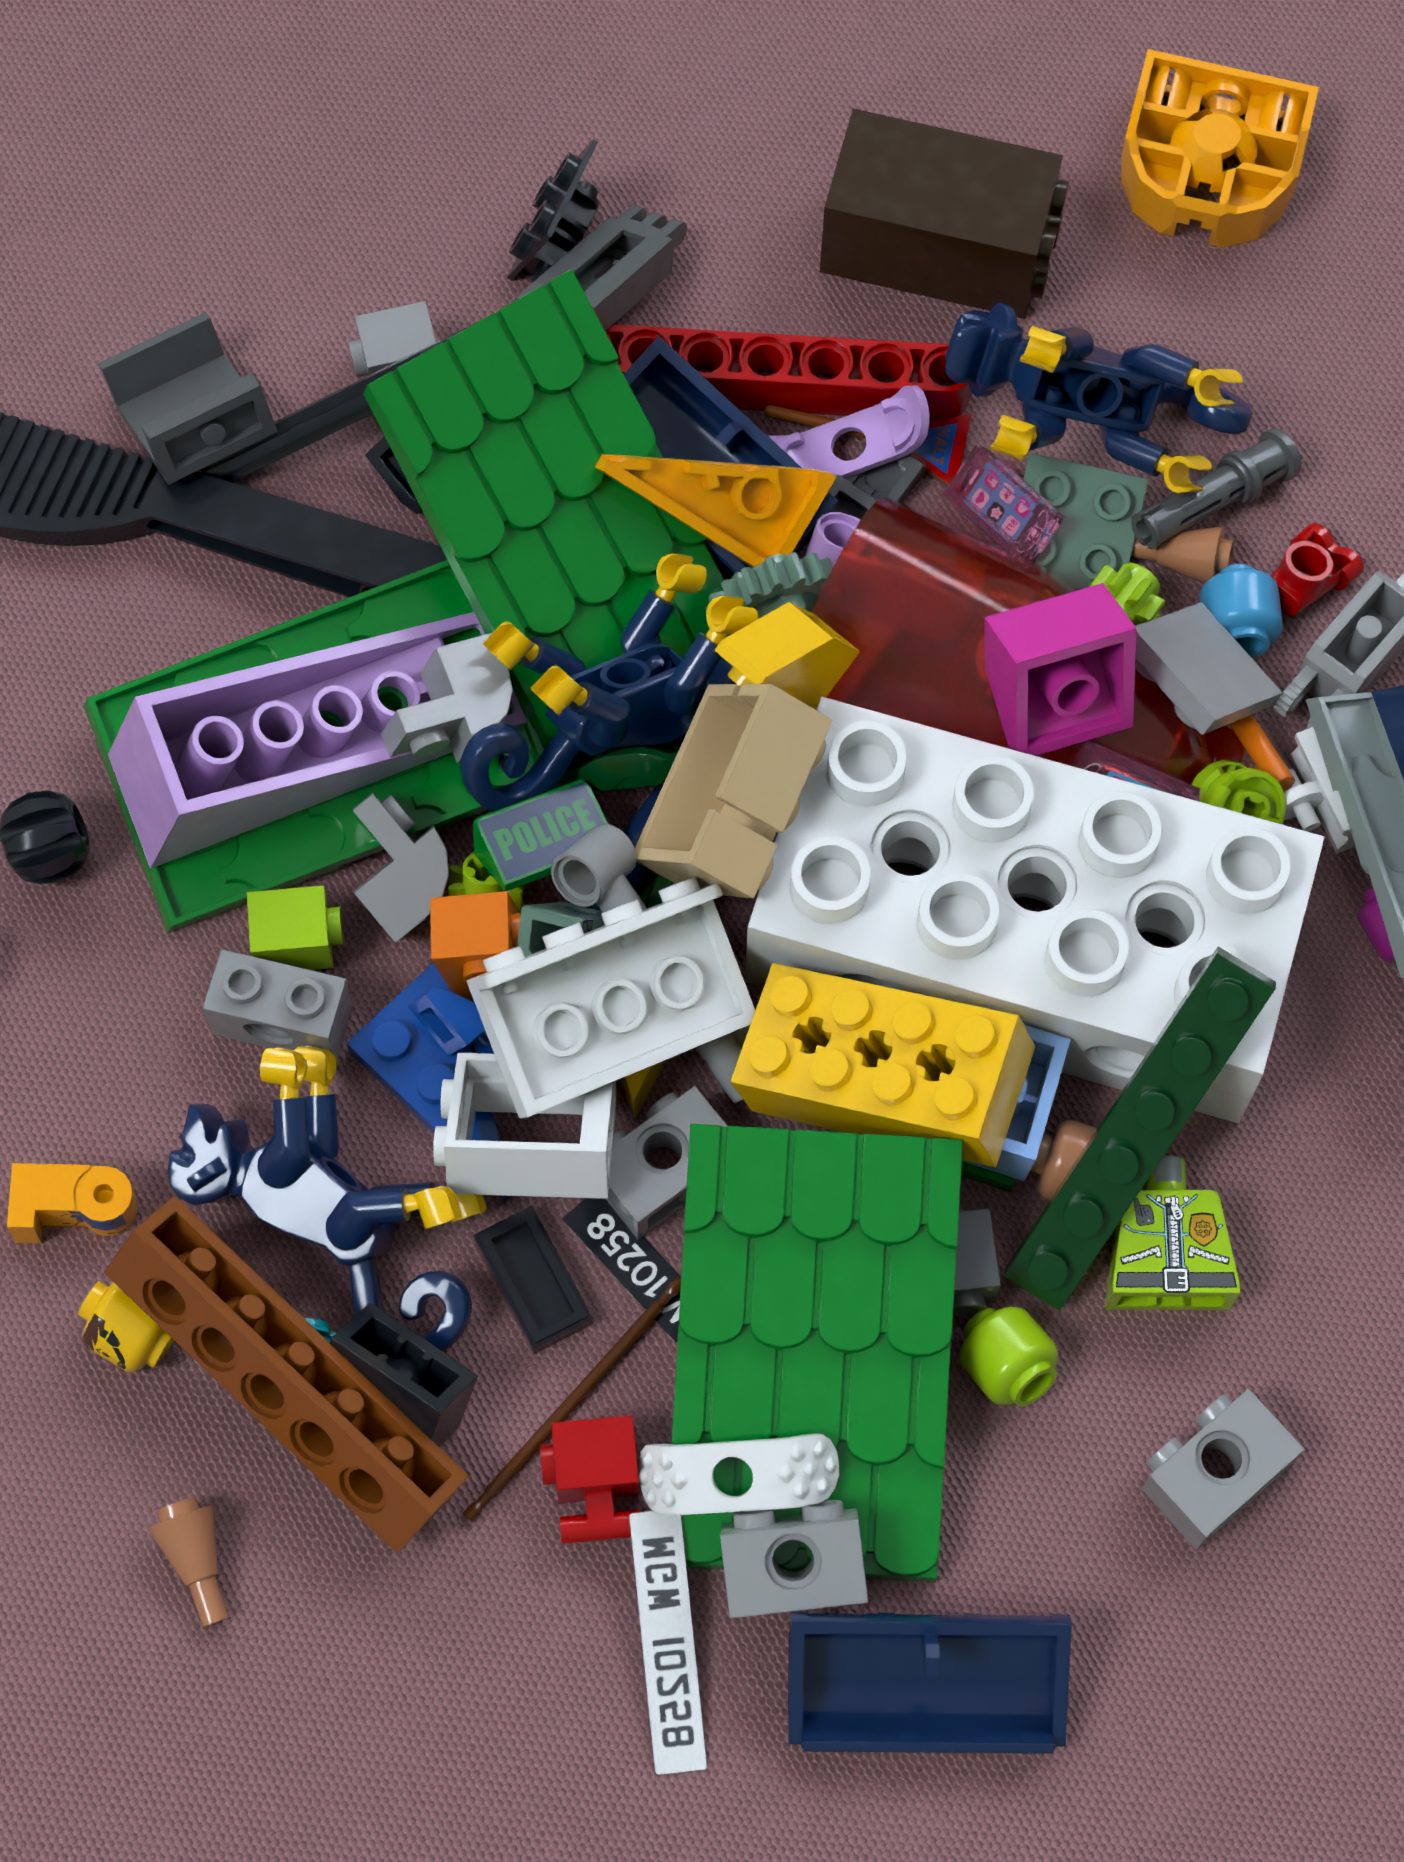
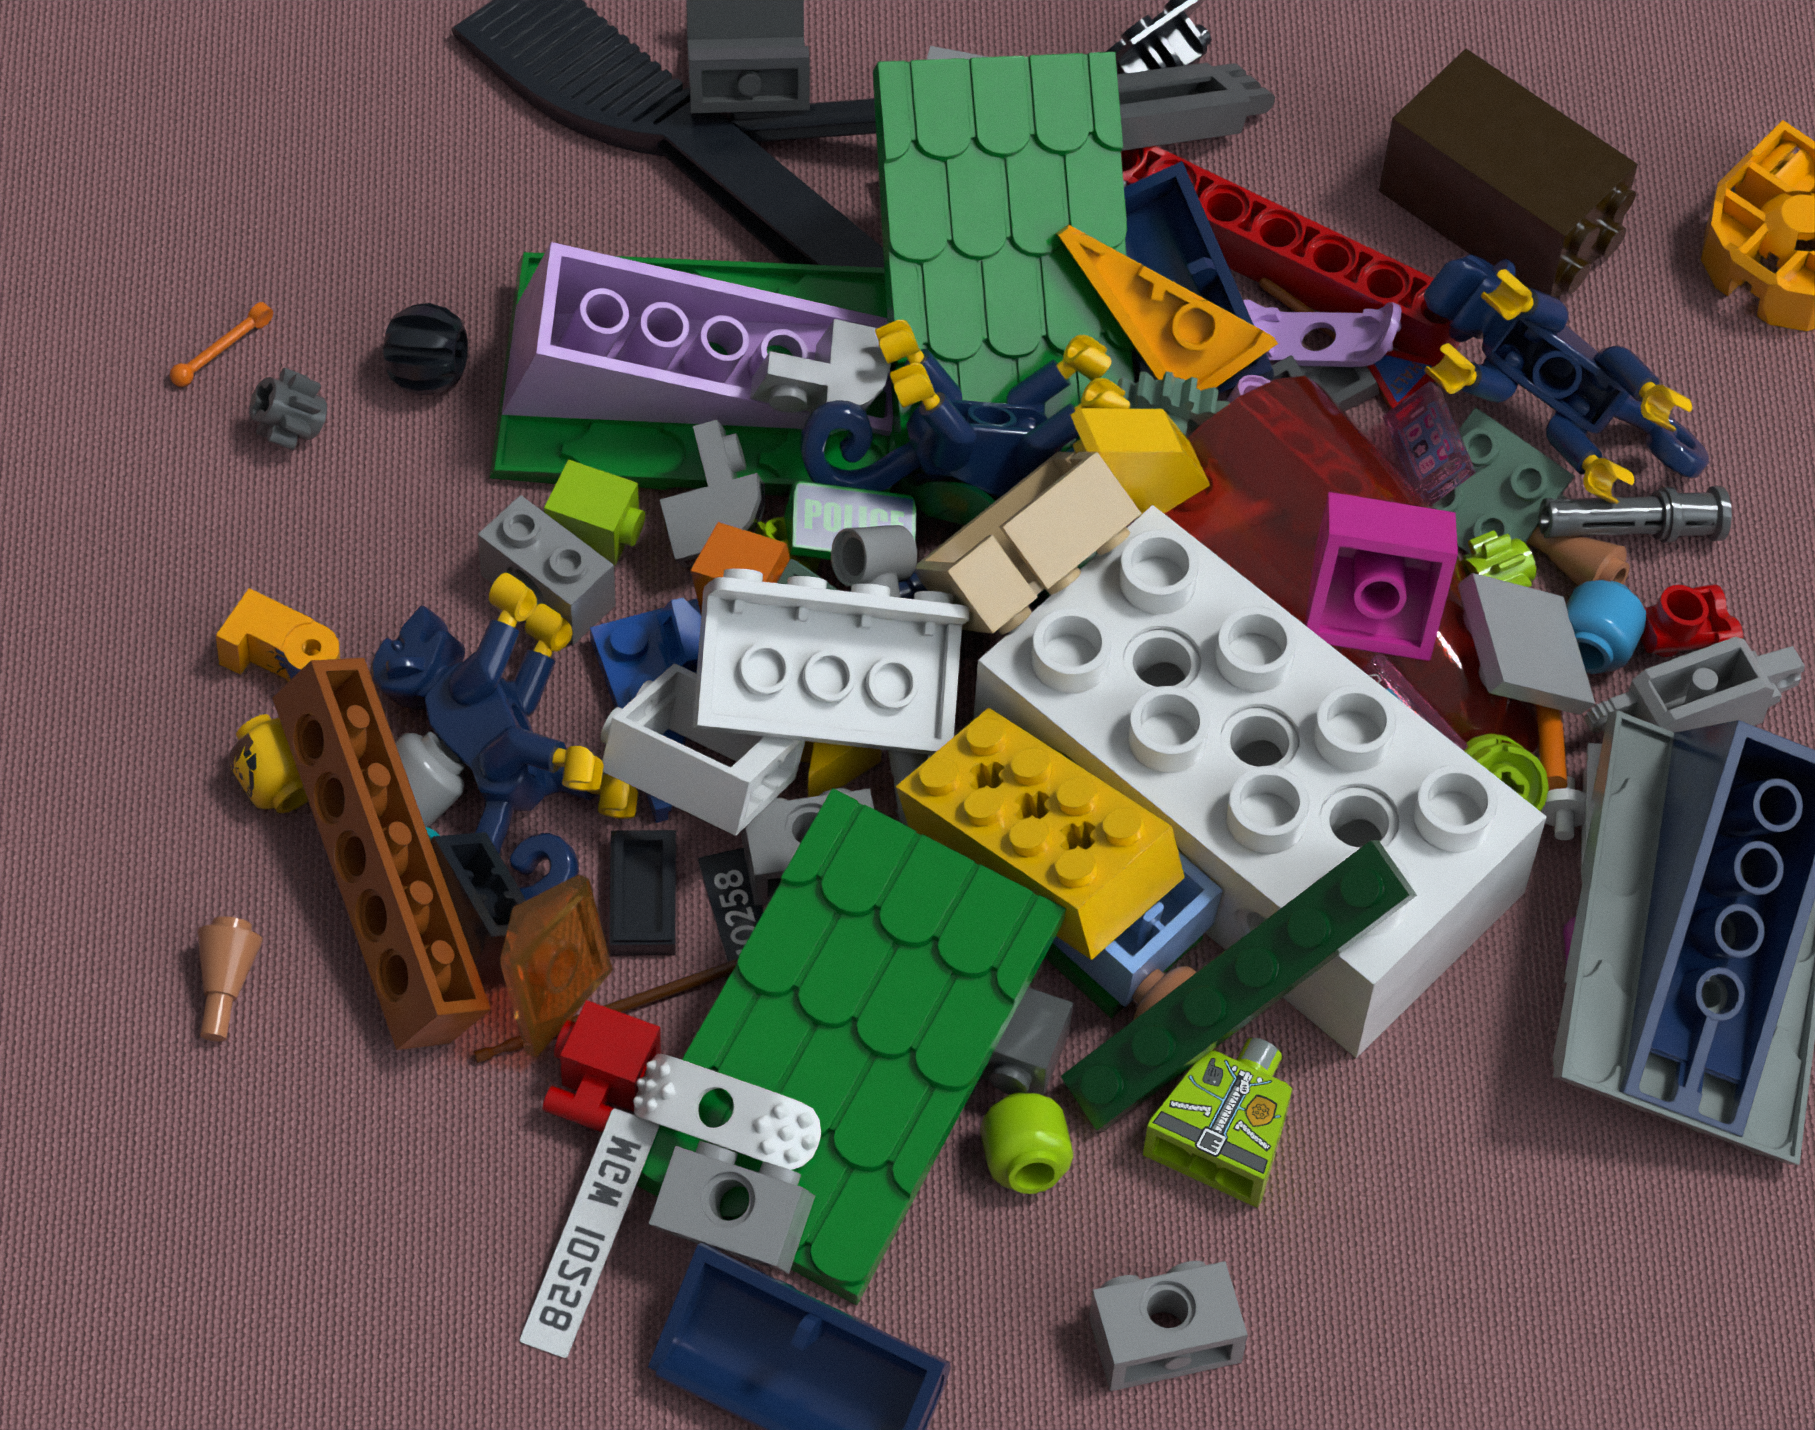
camera: 25 degrees right, 10 degrees down
(283, 1264) = (431, 773): none -> light grey head
(500, 1399) = (553, 959): none -> clear orange slope

